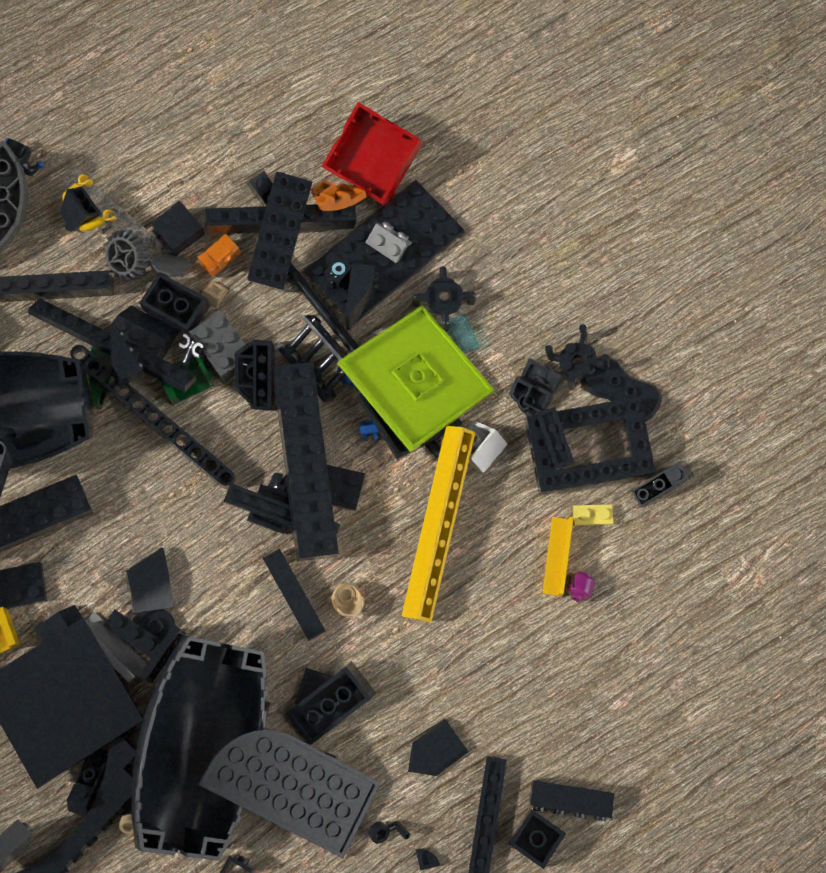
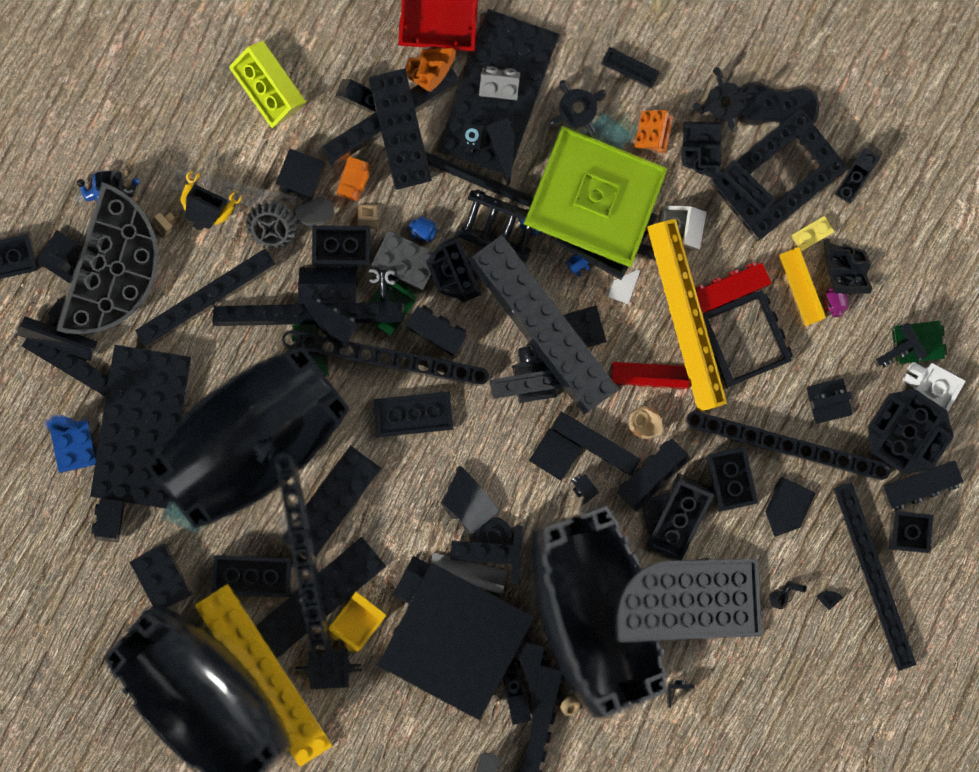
camera: 30 degrees left, 10 degrees up
(41, 209) = (163, 224): none -> tan tile
(150, 480) = (413, 414): none -> black plate
(196, 143) = (267, 84): none -> neon yellow slope
(212, 418) = (437, 330): none -> black brick
(252, 328) = (423, 229): none -> blue head
(252, 584) = (555, 454): none -> black tile
(260, 628) = (584, 488): none -> black brick
(328, 651) = (653, 474): none -> black brick
(376, 560) = (650, 375): none -> red panel
(397, 694) = (732, 479): none -> black brick
(399, 471) = (623, 289): none -> white sticker
(469, 702) = (778, 439): none -> black beam
(493, 522) = (733, 287): none -> red brick
(501, 352) = (654, 130): none -> orange bracket
(509, 289) = (630, 67): none -> black plate
(513, 571) = (778, 335): none -> black window
(527, 673) = (829, 401): none -> black bracket
(607, 745) = (930, 432): none -> black piece
(608, 562) = (847, 268): none -> black slope
(619, 661) = (902, 350): none -> black bracket
(631, 712) = (934, 383): none -> white plate
(638, 664) = (929, 336): none -> dark green panel

